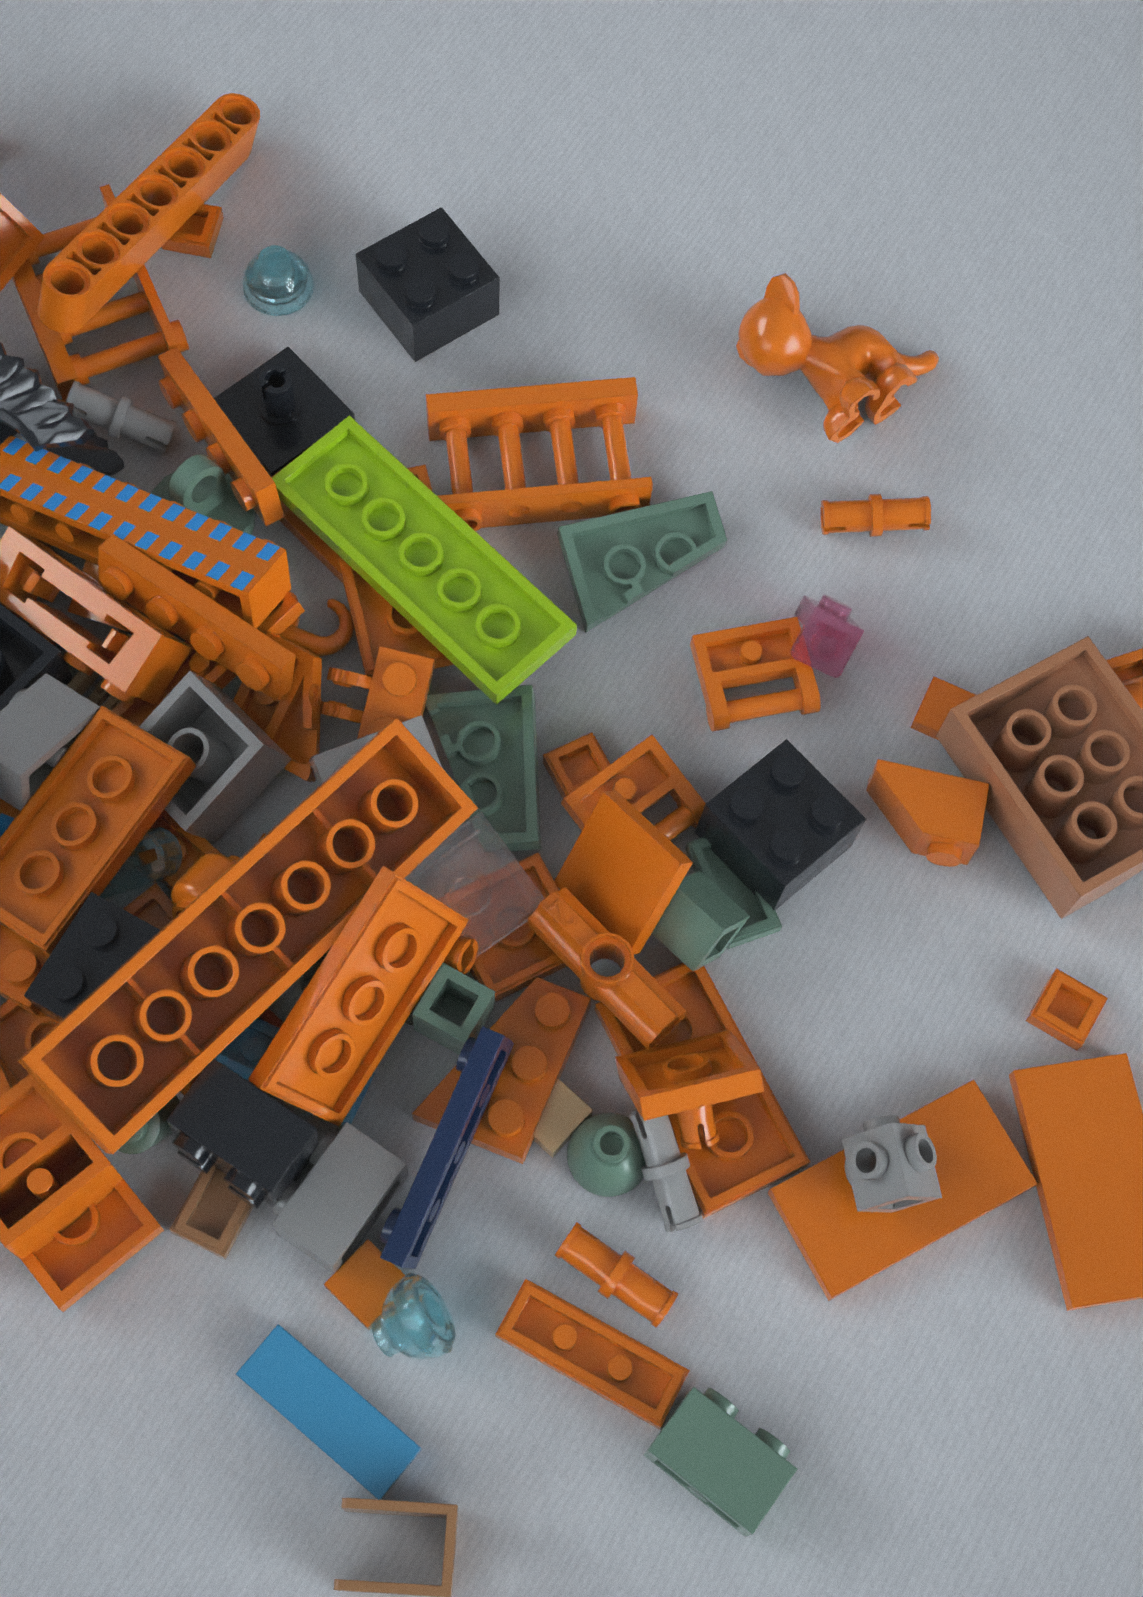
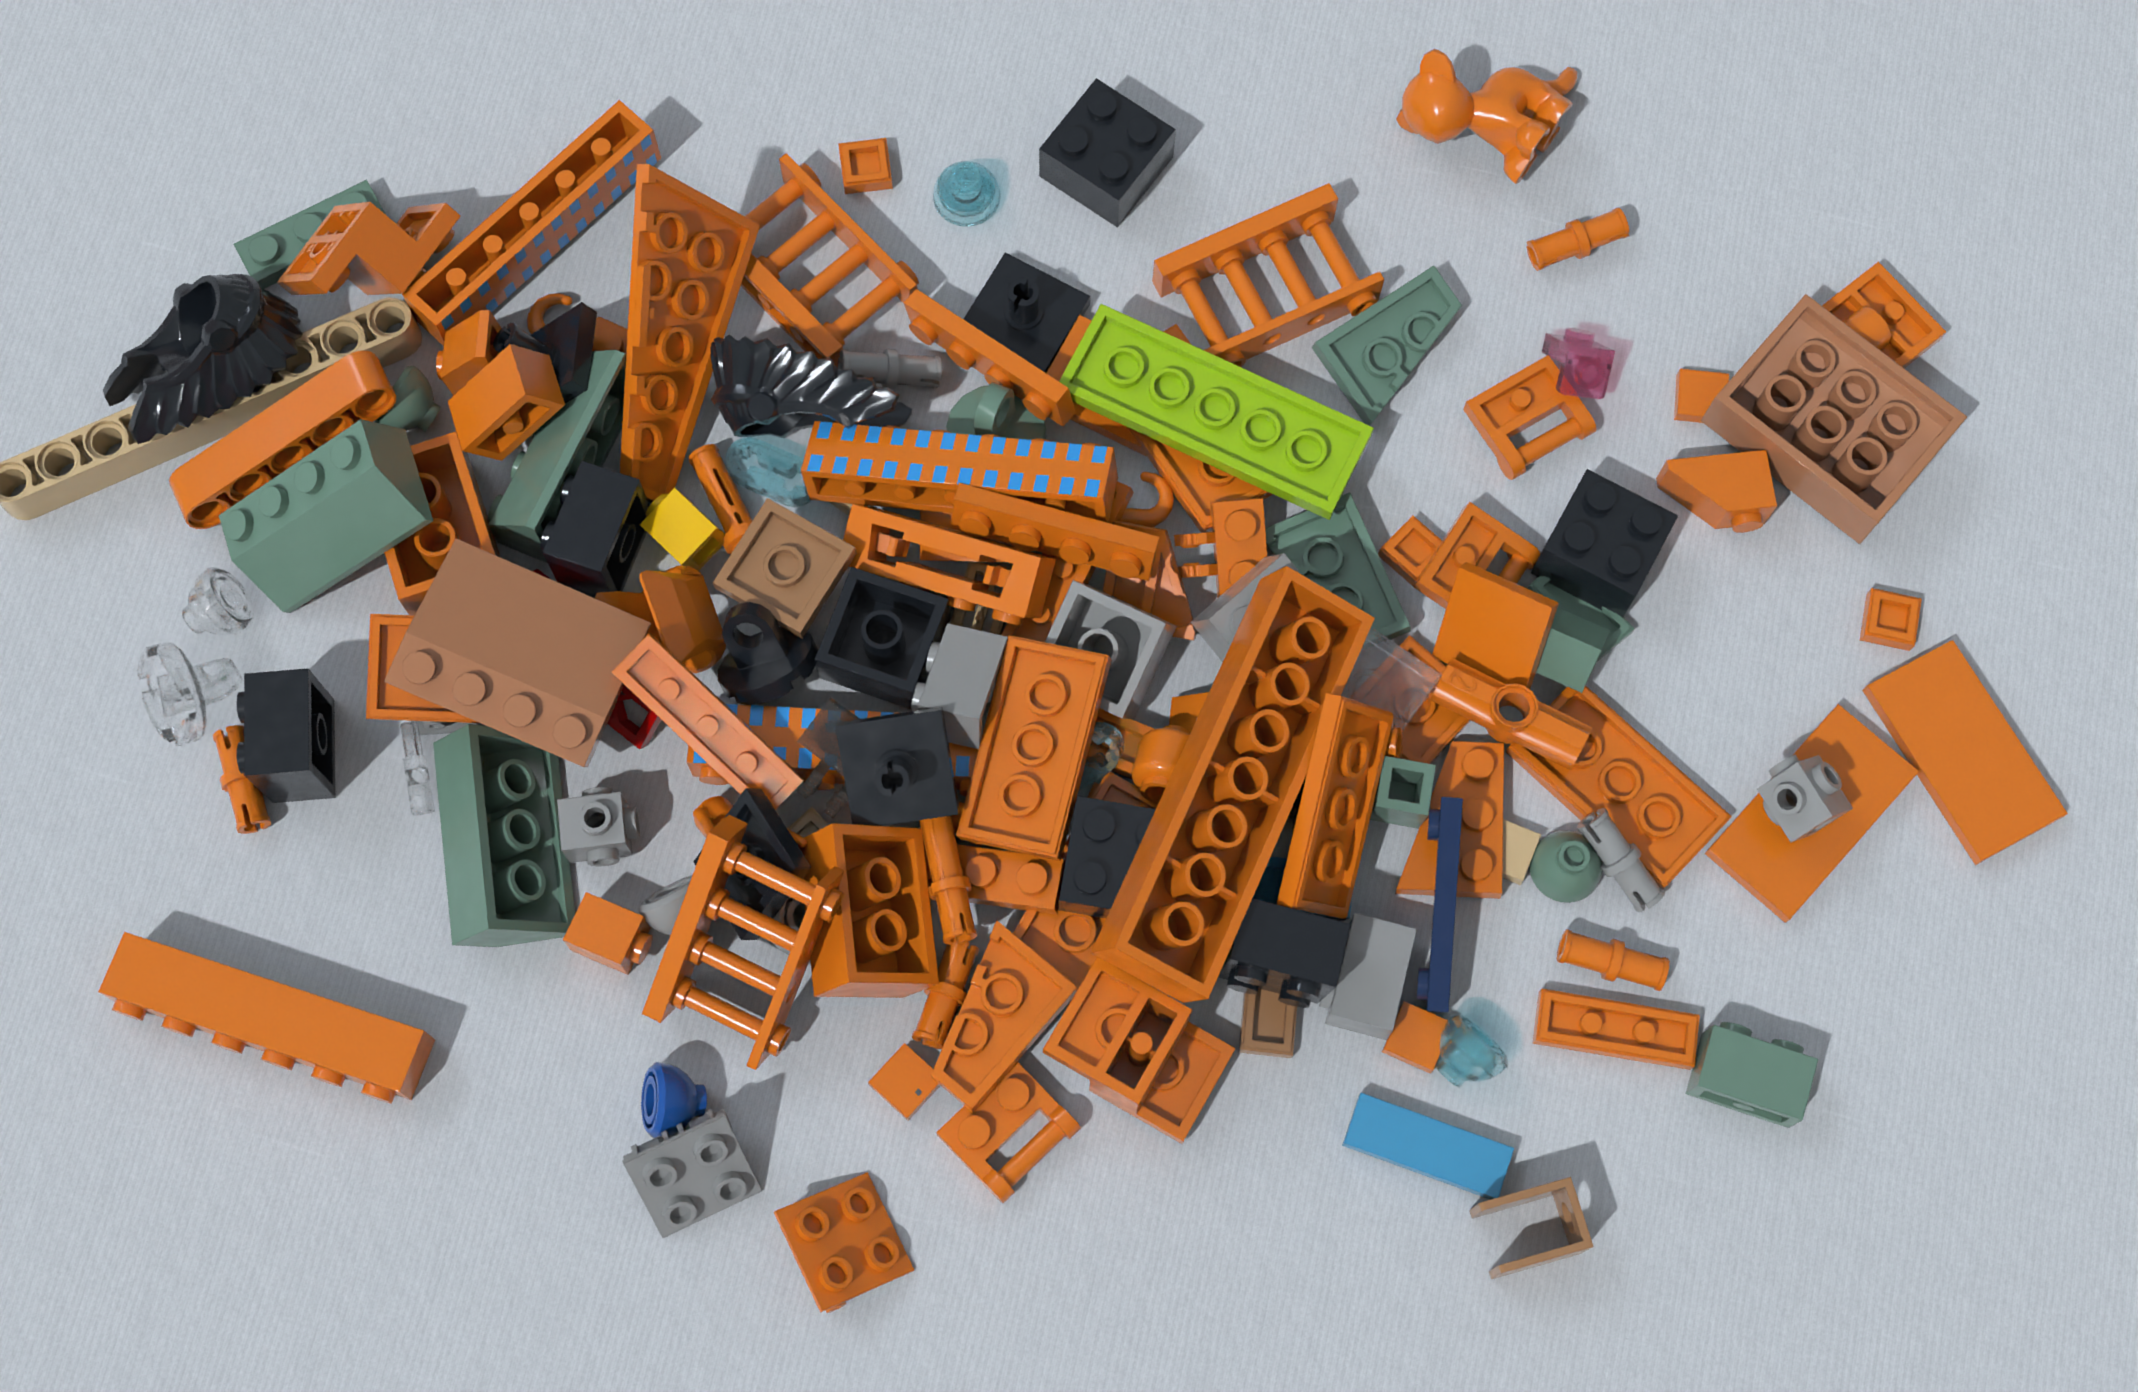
camera: 15 degrees left, 5 degrees up
(147, 214) = (841, 170): orange beam -> none
(688, 1080) = (1619, 782): orange tile -> none

